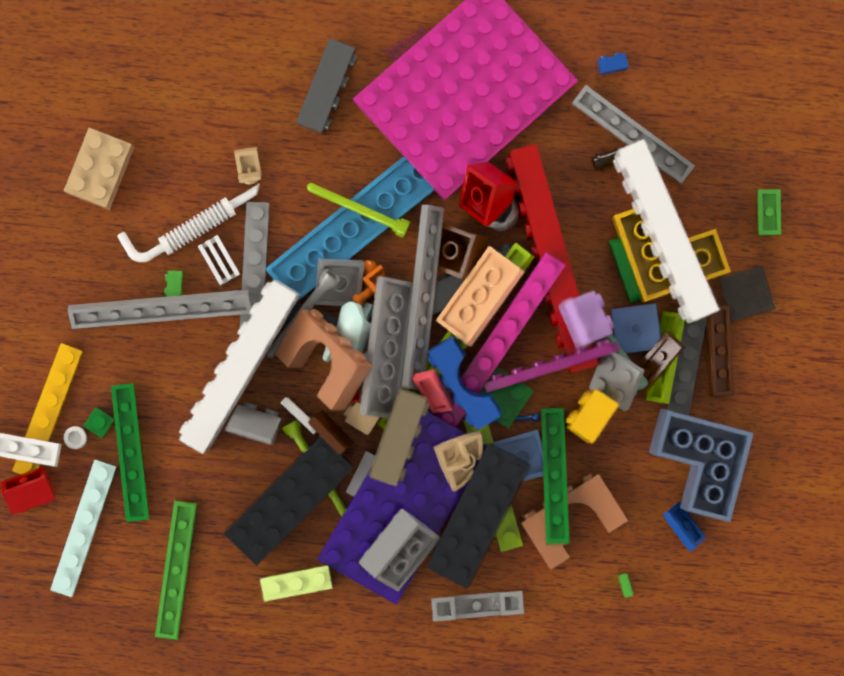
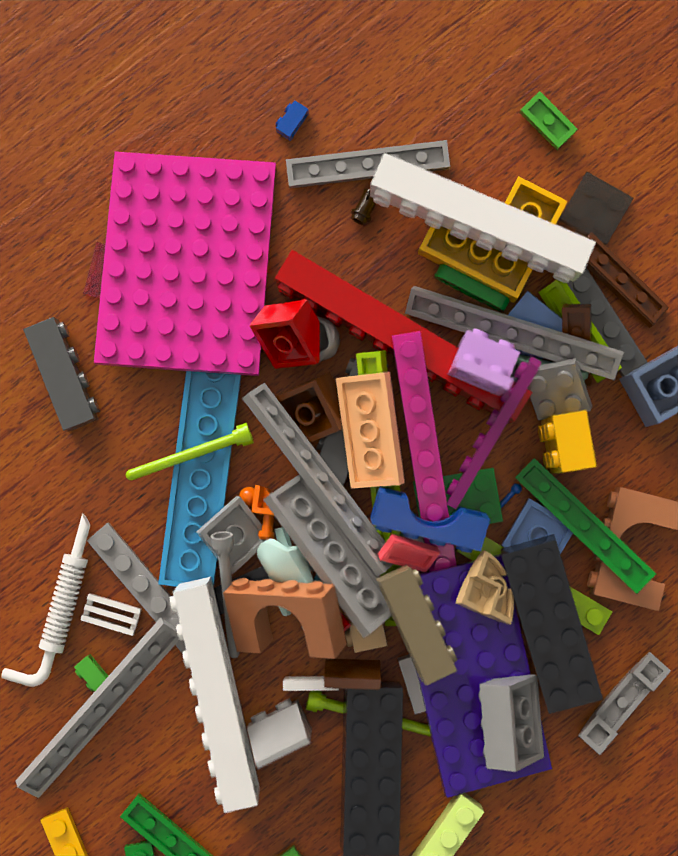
camera: 30 degrees left, 0 degrees up
(248, 165) = (58, 507): tan bracket -> none
(623, 319) = (523, 334): none -> light grey plate

